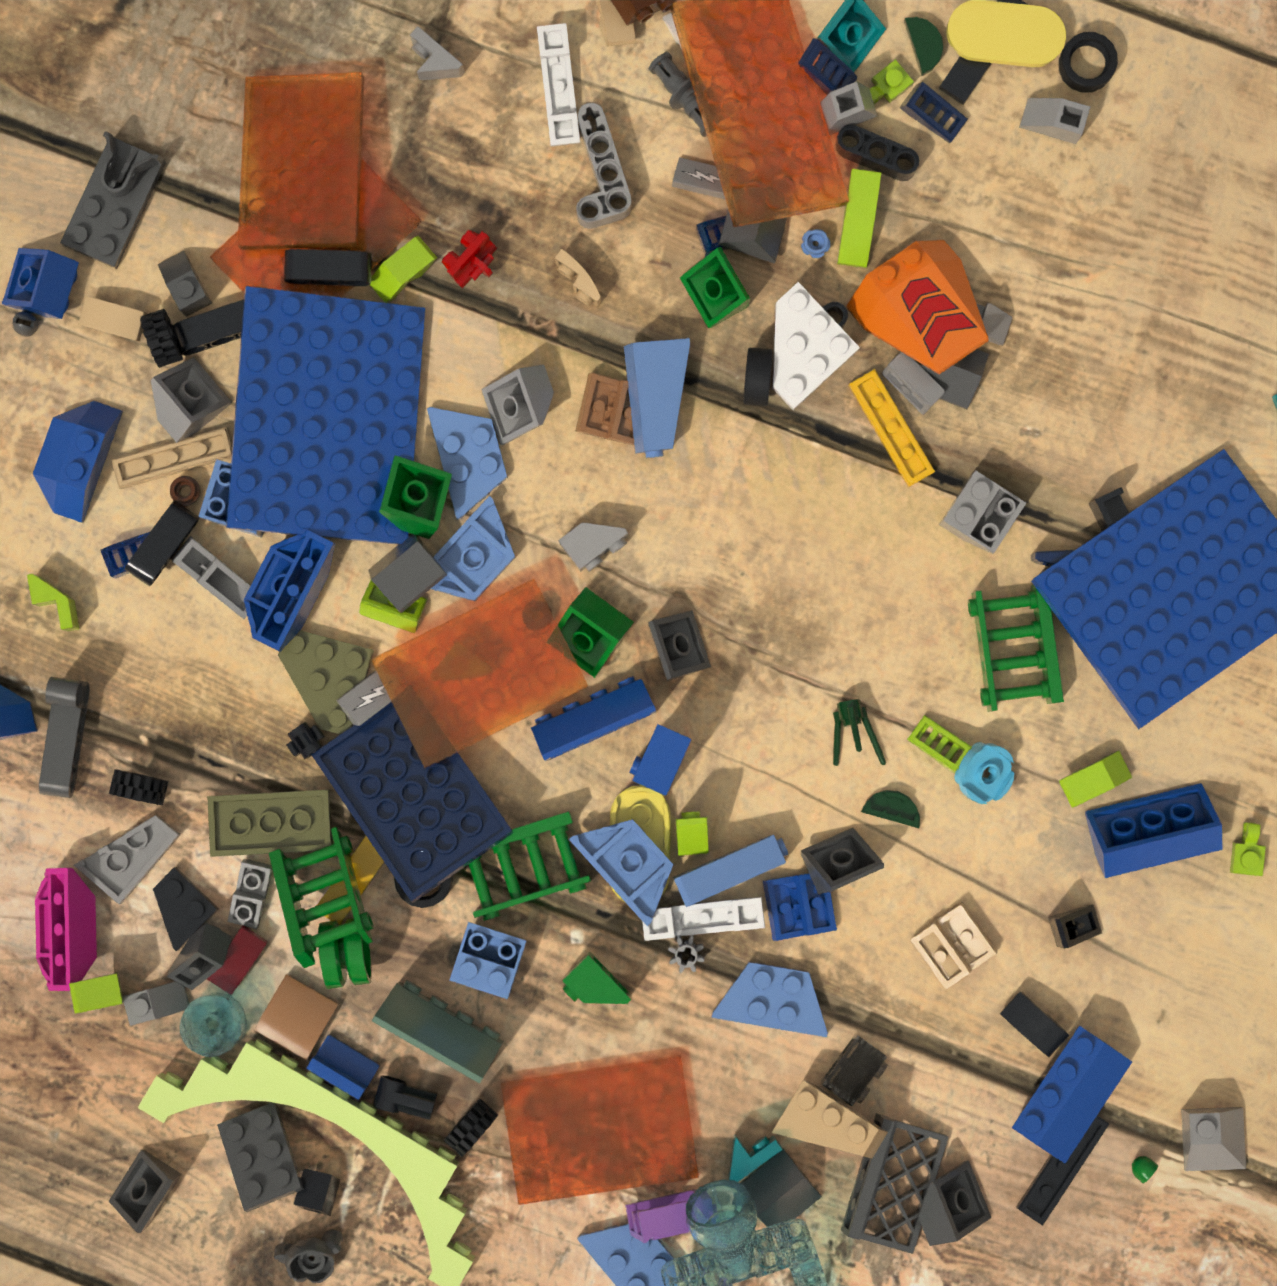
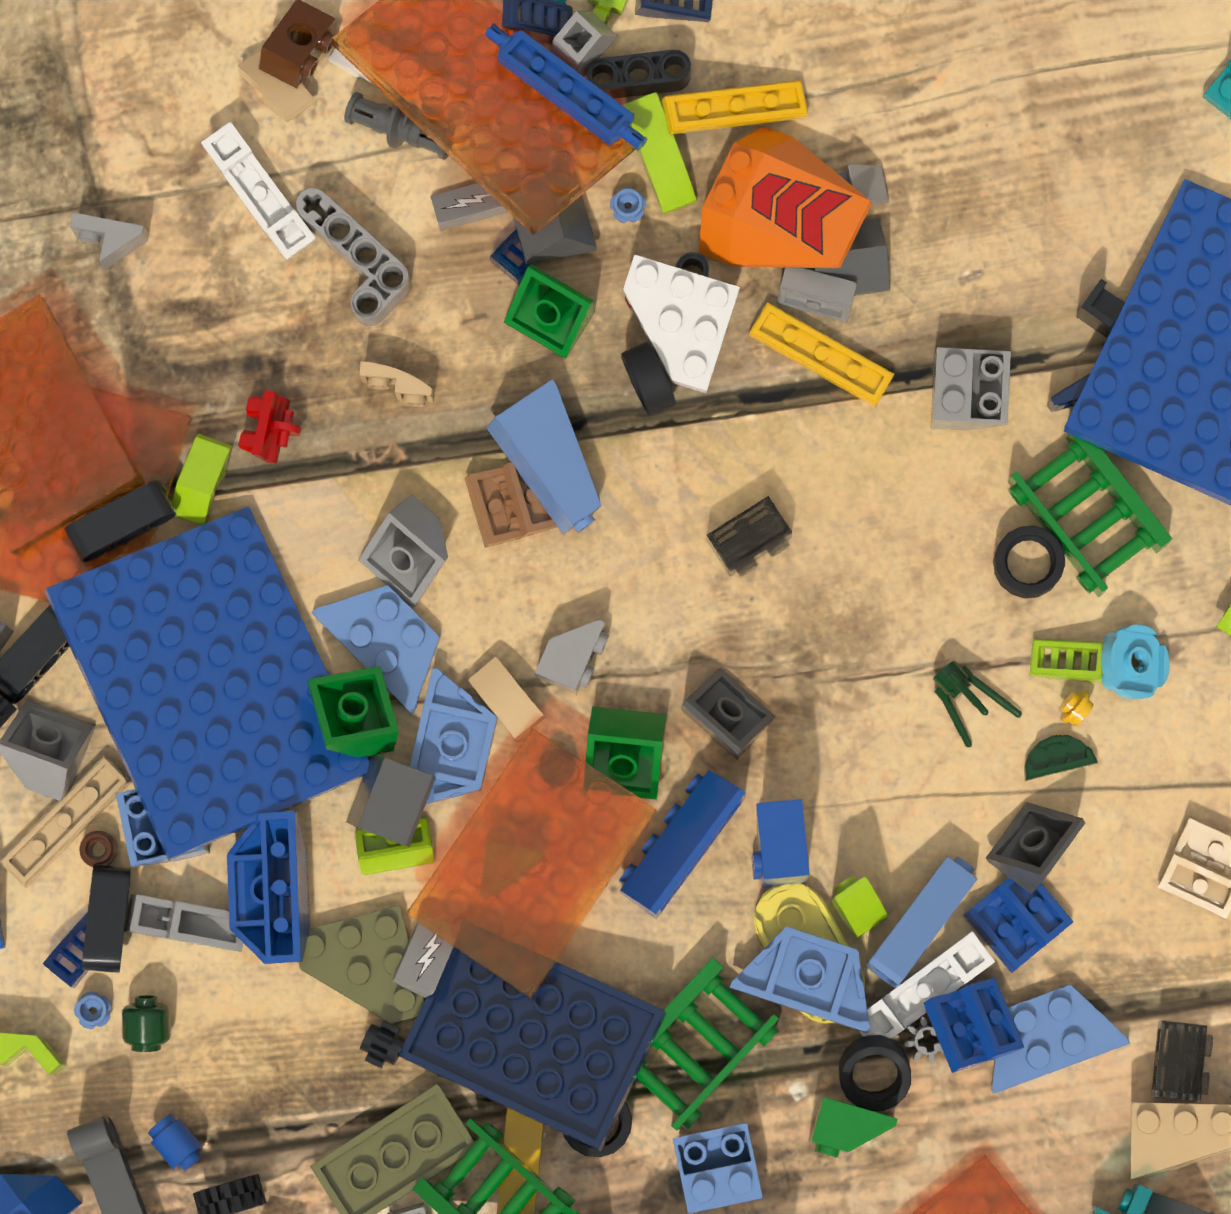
camera: 25 degrees left, 5 degrees down
(111, 598) = (90, 1000): none -> medium blue plate
(123, 727) = (175, 1142): none -> blue brick
(149, 632) = (146, 1024): none -> dark green head
(529, 547) = (506, 698): none -> tan slope
(632, 977) = (881, 1099): none -> black tyre
(724, 962) = (973, 1025): none -> blue slope
(765, 530) = (749, 537): none -> clear smoke brick
(817, 132) = (565, 87): none -> blue plate
(925, 781) = (1076, 708): none -> yellow plate
(931, 215) = (734, 107): none -> yellow tile
(975, 659) = (1038, 535): none -> black tyre

